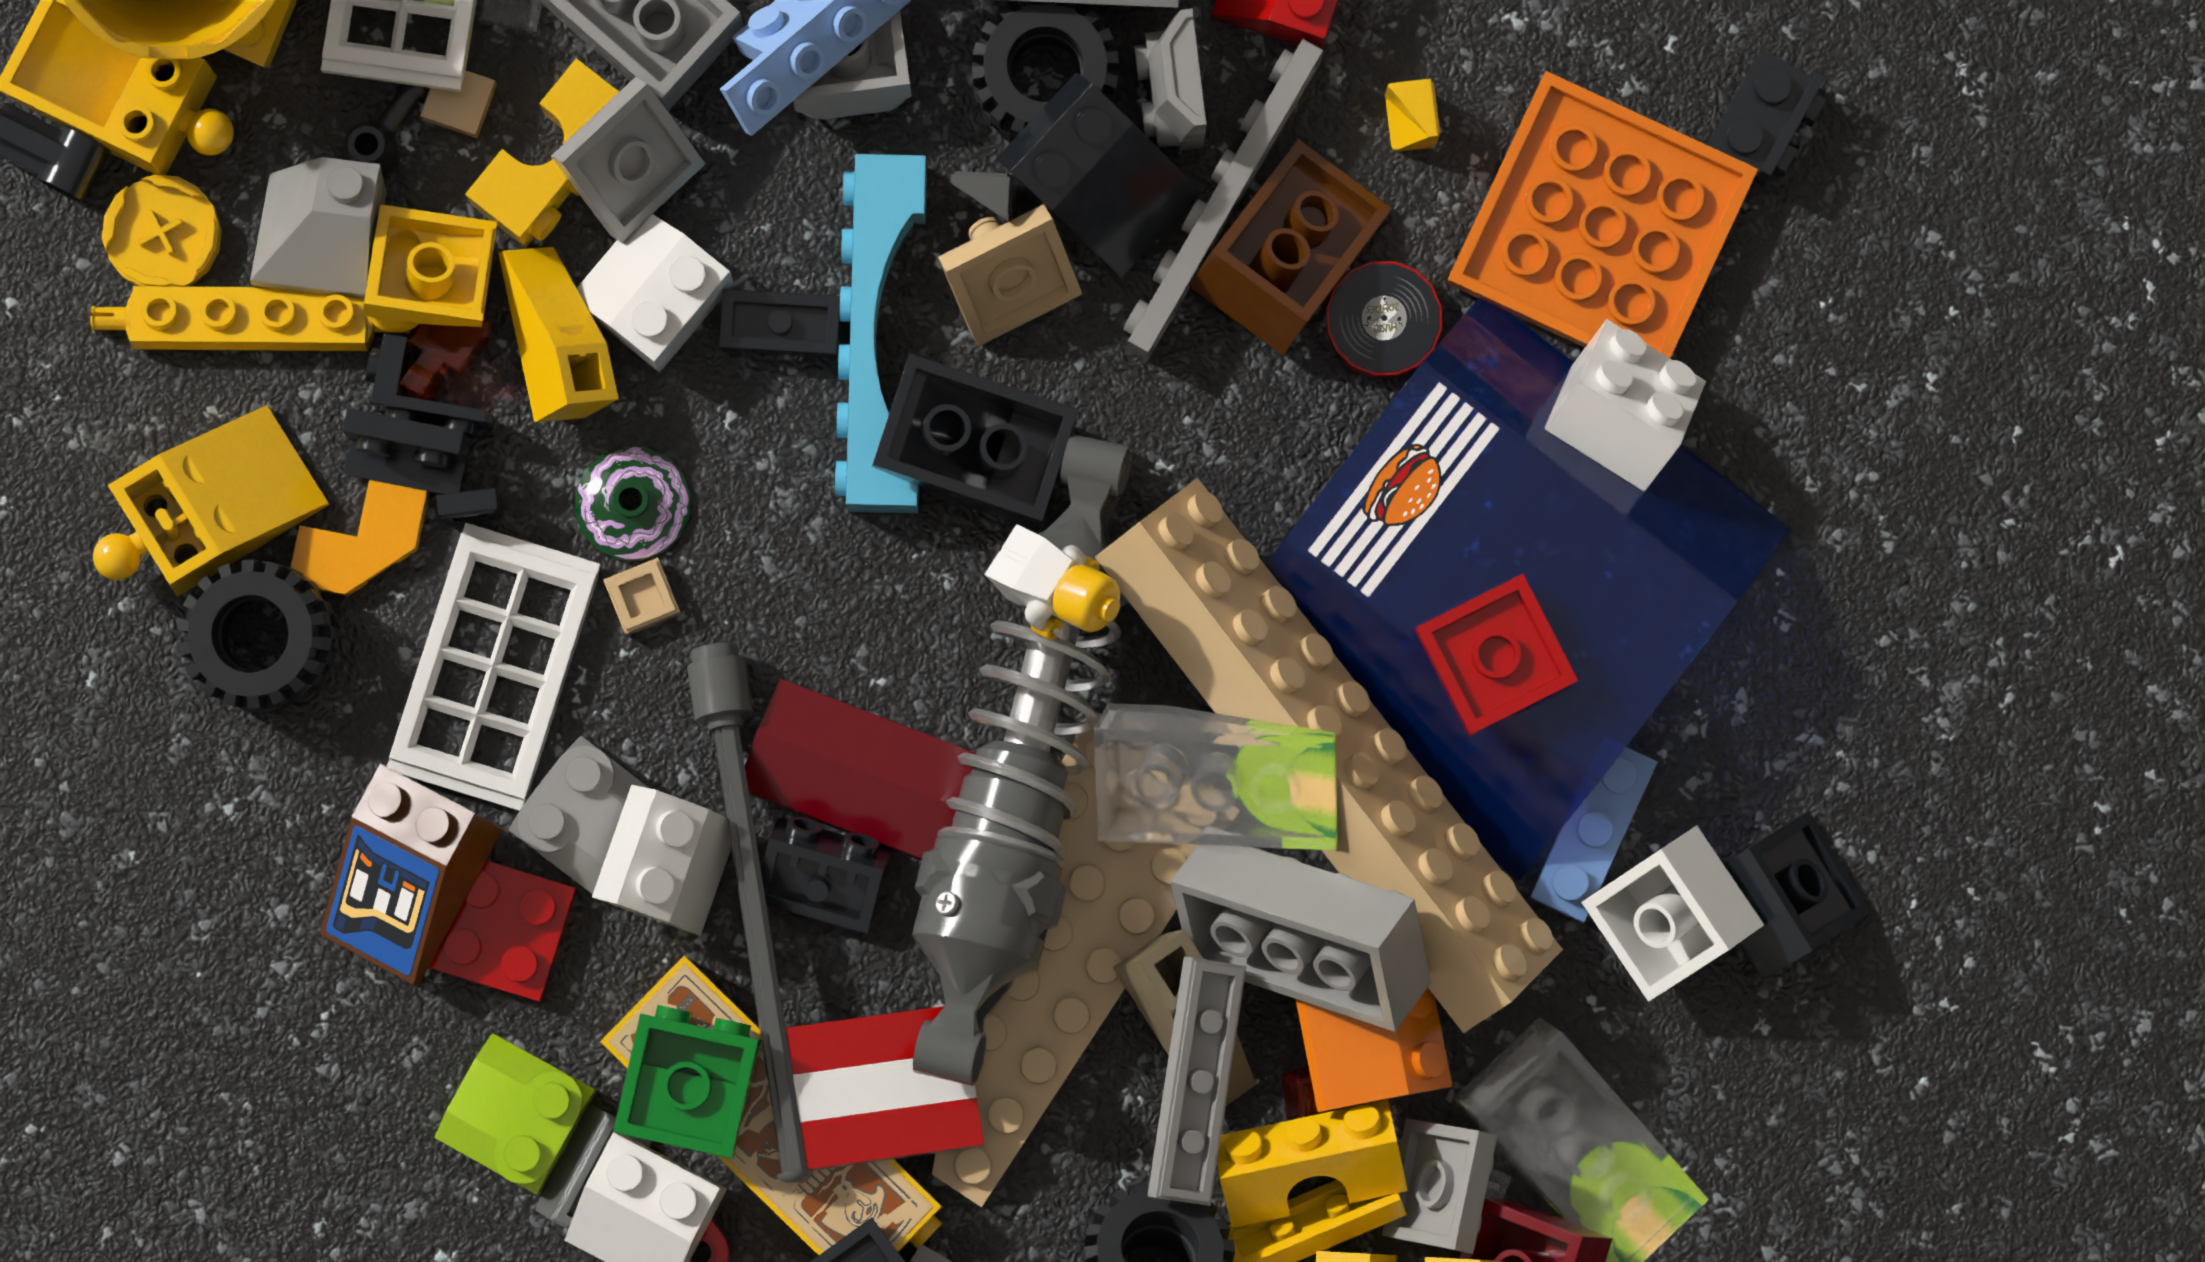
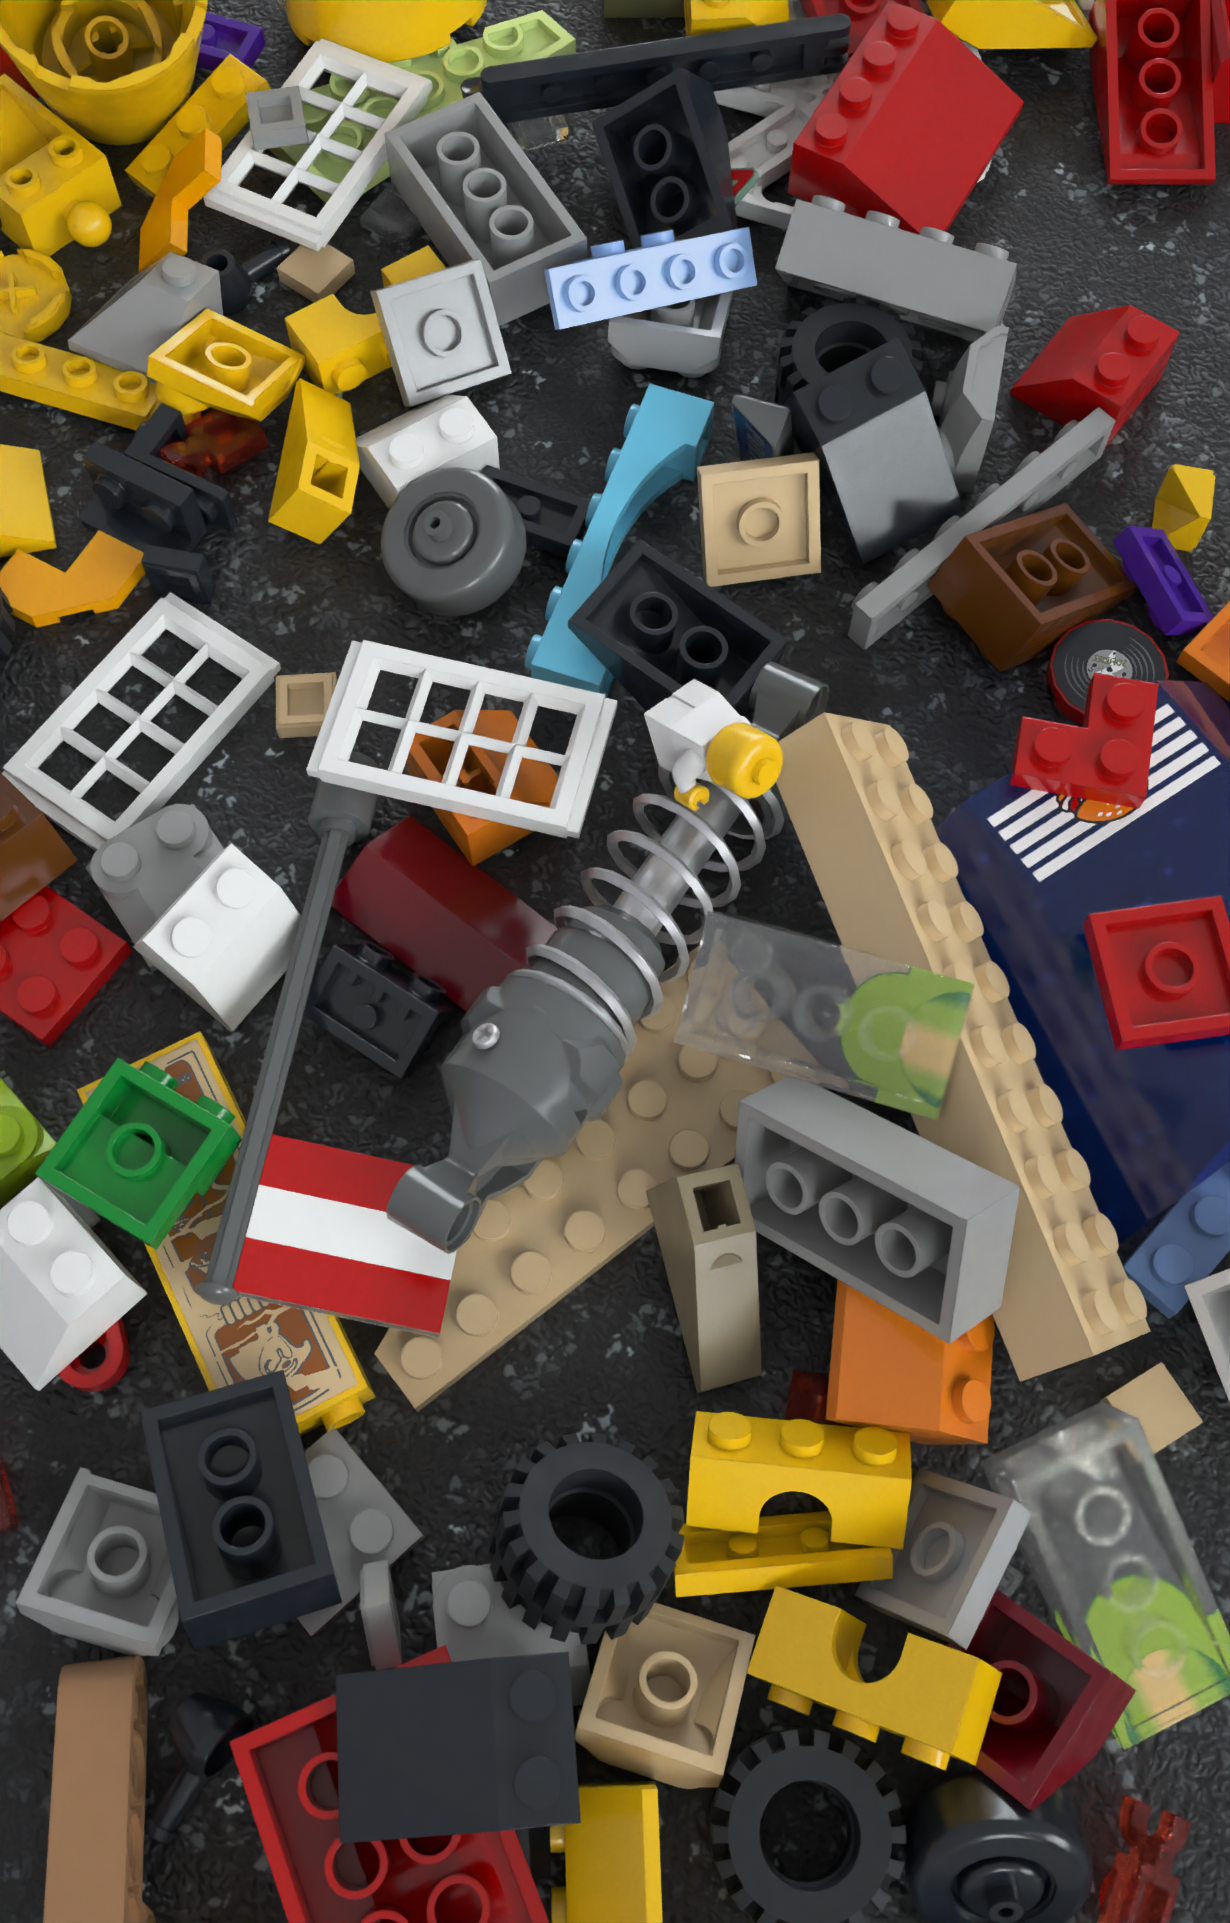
camera: 20 degrees right, 15 degrees down
(293, 55) = (187, 181): none -> light orange tile
(640, 532) = (322, 644): dish -> none
(705, 620) = (579, 764): none -> white piece
(724, 392) = (453, 542): none -> dark grey wheel
(844, 626) = (482, 773): none -> orange slope
(1197, 1081) = (698, 1337): light grey tile -> none
(1395, 463) = (1104, 757): none -> red plate
(1413, 205) = (1163, 581): none -> dark purple plate
(1583, 1009) = (1158, 1406): none -> tan tile

